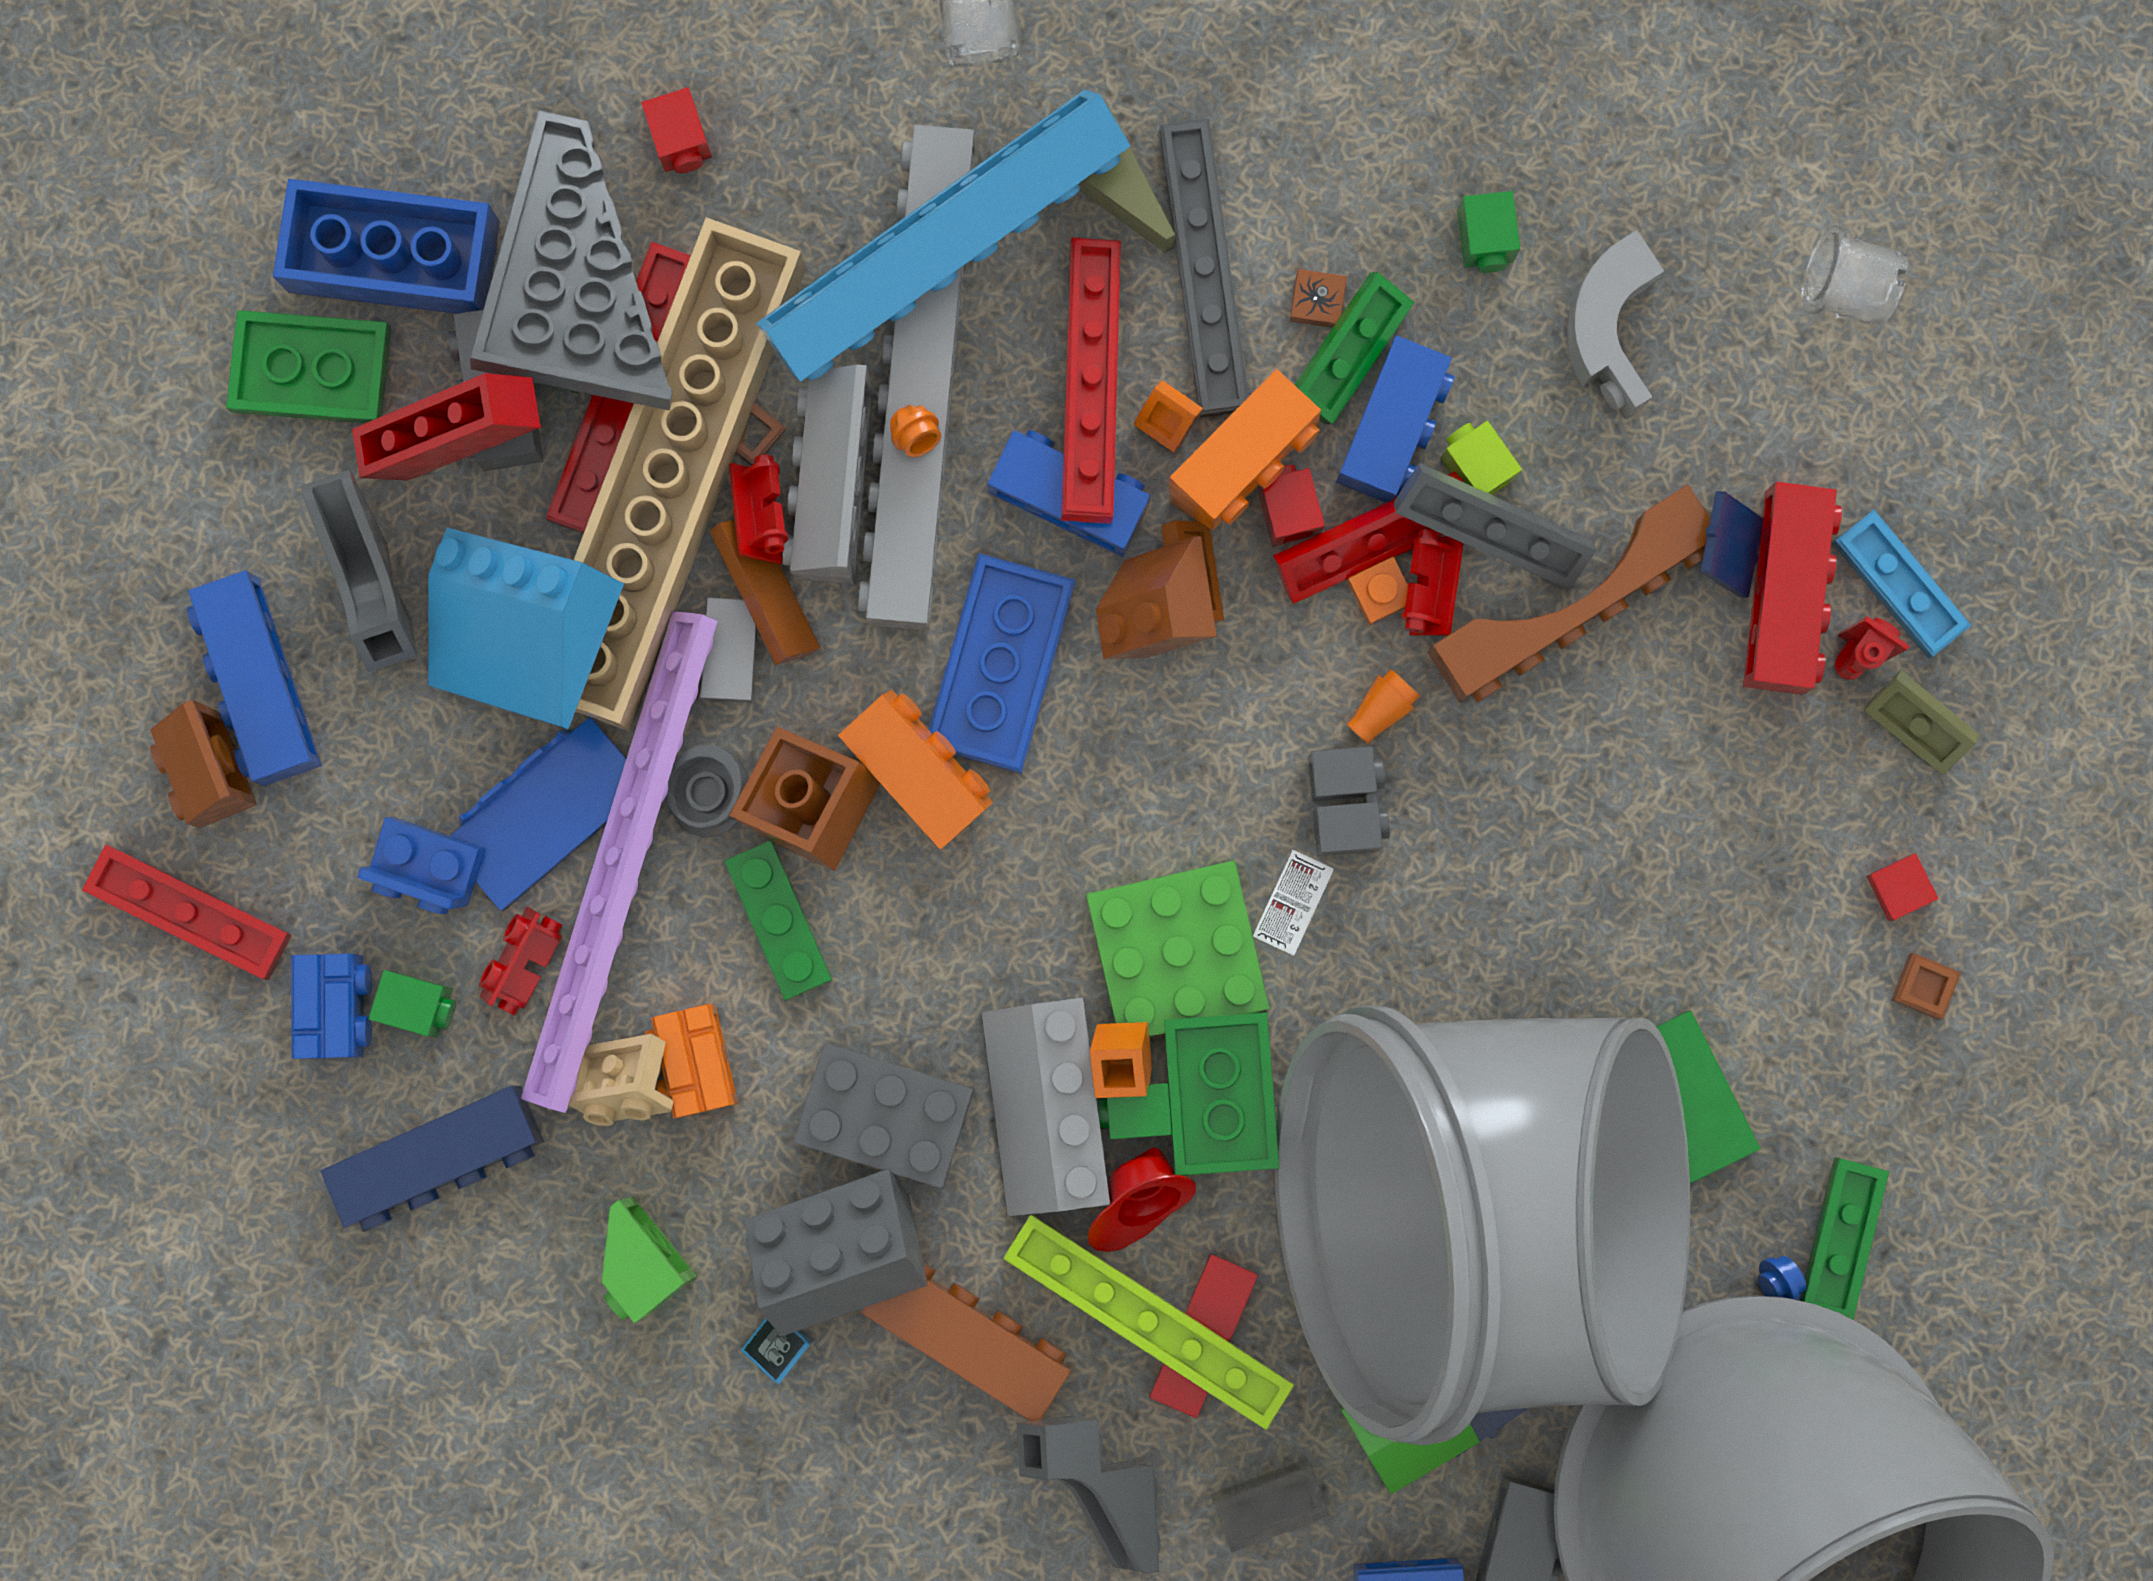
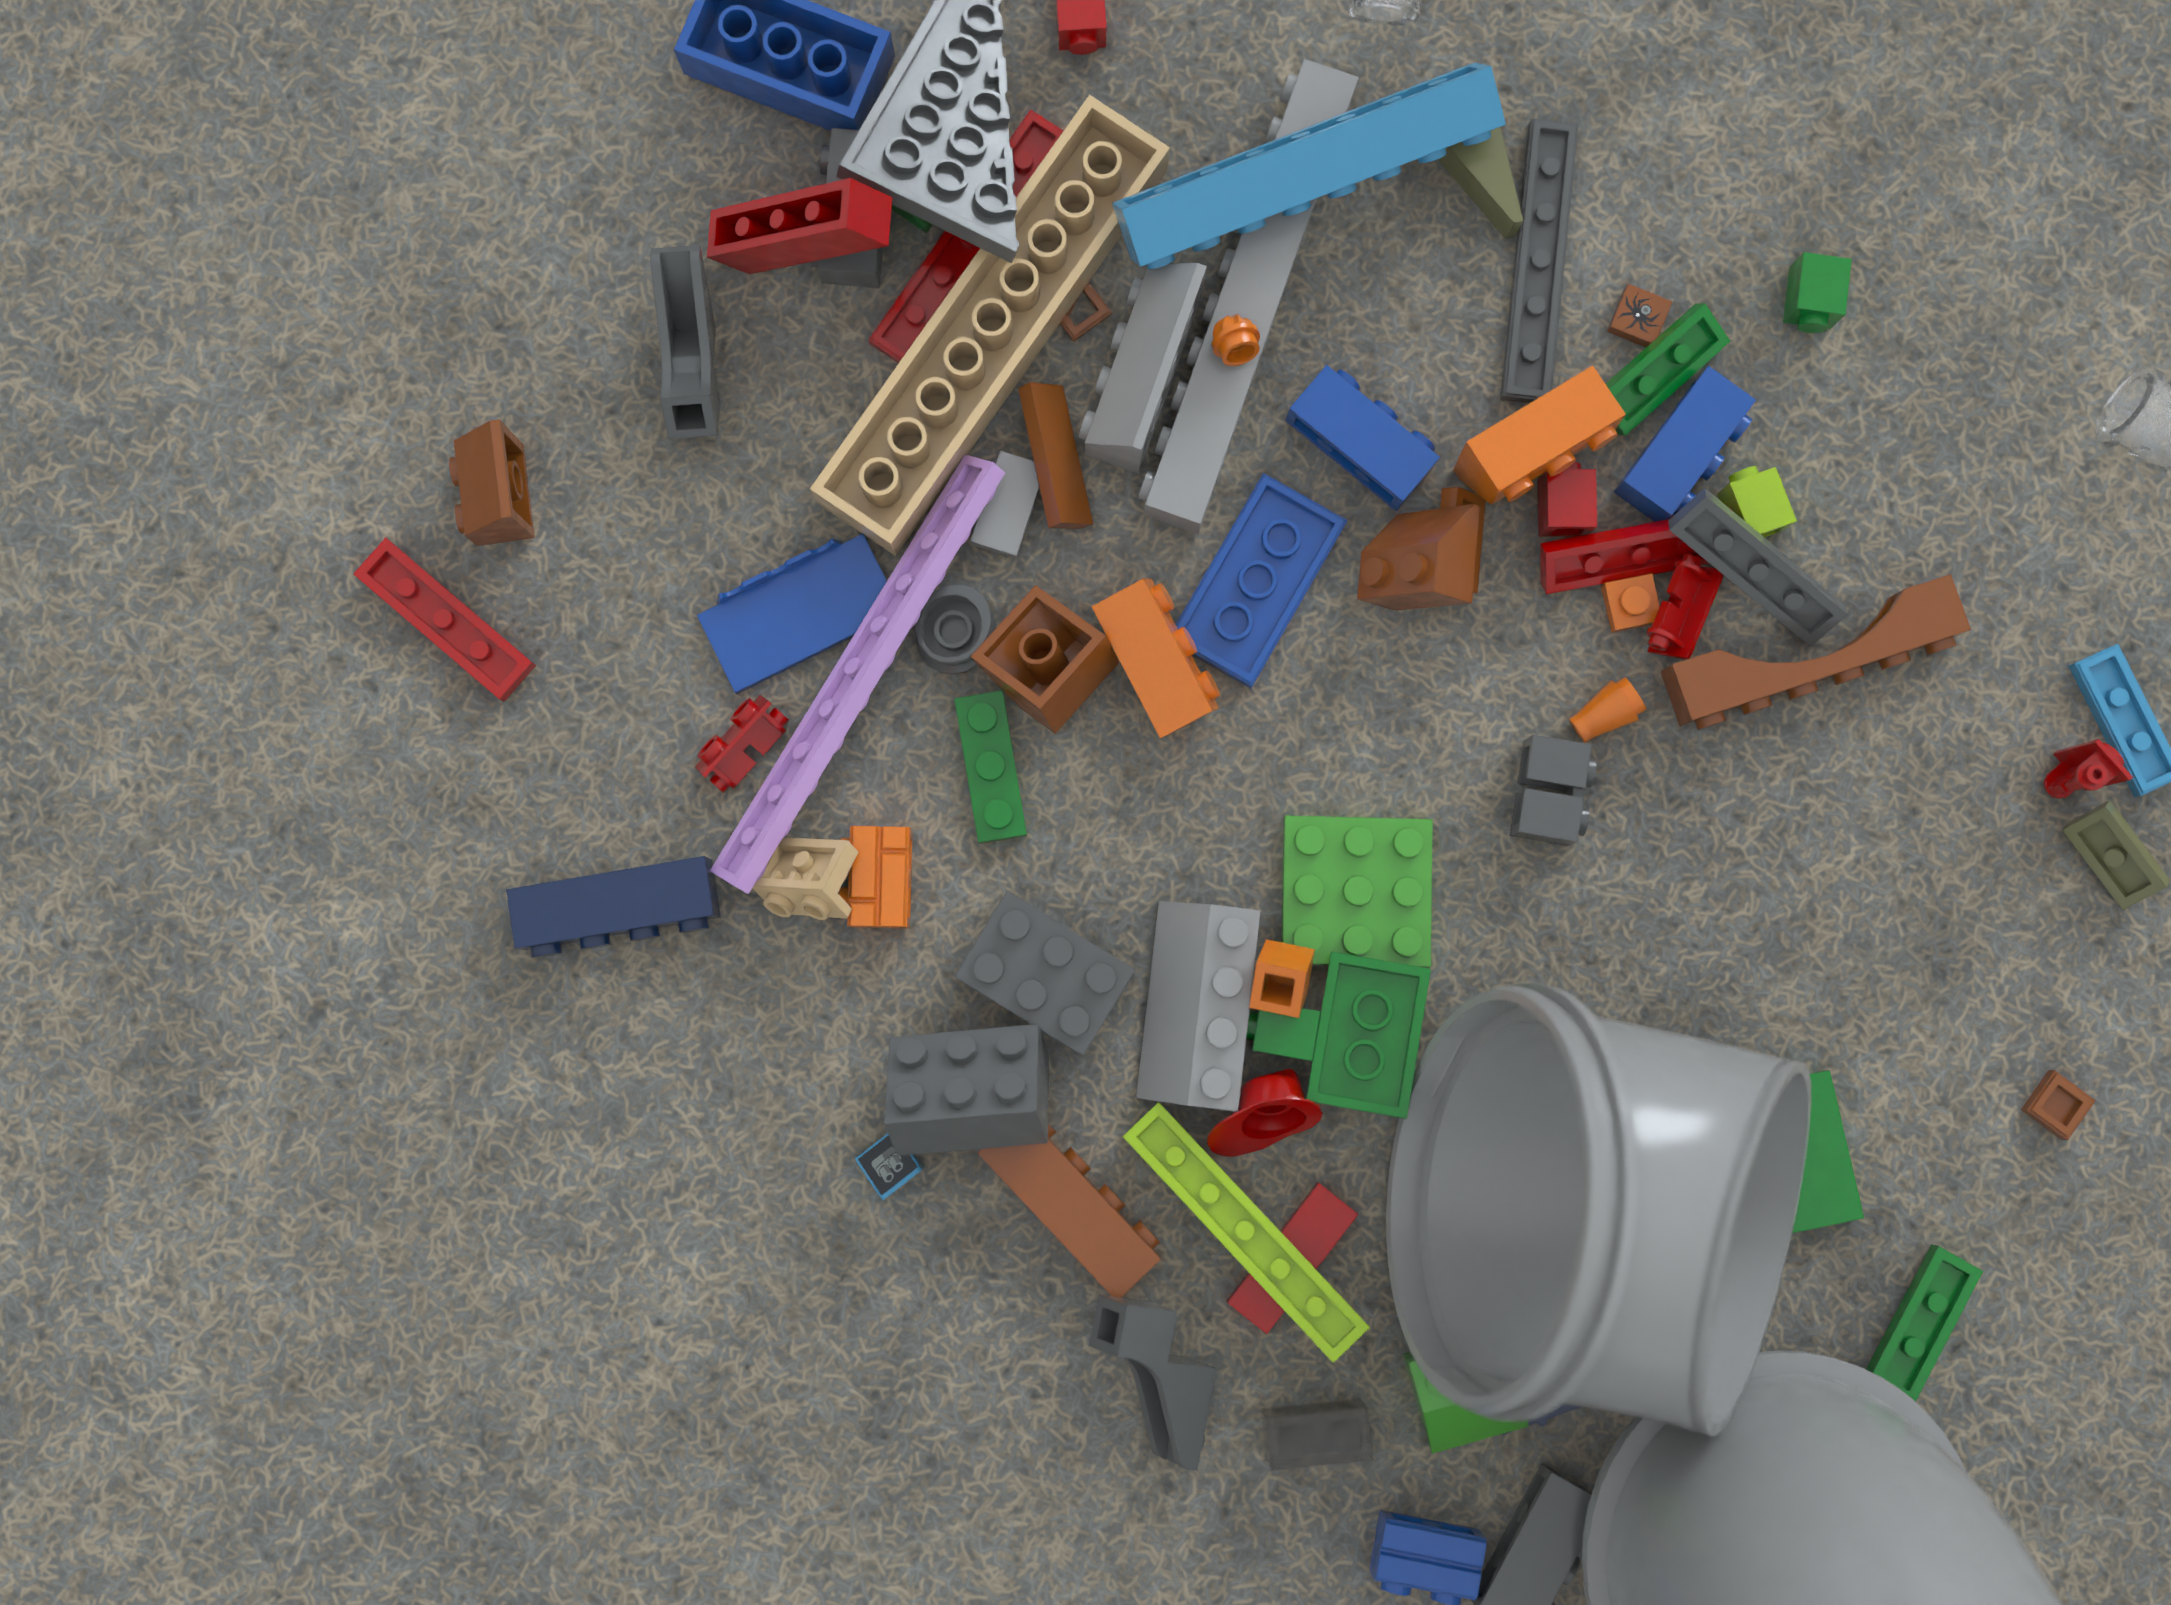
camera: 15 degrees right, 0 degrees up
(253, 679) = (560, 419): blue brick -> none
(308, 367) = (684, 145): green plate -> none
(329, 1006) = (554, 739): blue brick -> none
(413, 1004) = (631, 757): green brick -> none
(423, 866) = (674, 631): blue bracket -> none
(515, 625) = (817, 427): dark azure slope -> none
(639, 1263) = (781, 1053): bright green slope -> none
(756, 512) = (1066, 383): red hinge -> none
(1091, 381) = (1409, 338): red tile -> none
(1167, 416) = (1472, 389): orange plate -> none
(1293, 902) = (1476, 873): white sticker -> none
(1592, 321) = (1895, 401): light grey arch -> none
(1732, 544) = (1978, 641): dark blue piece -> none
(1781, 1278) = (1854, 1345): blue plate -> none
(1791, 588) = (2022, 697): red brick -> none
(1902, 887) = (2058, 1005): red tile -> none

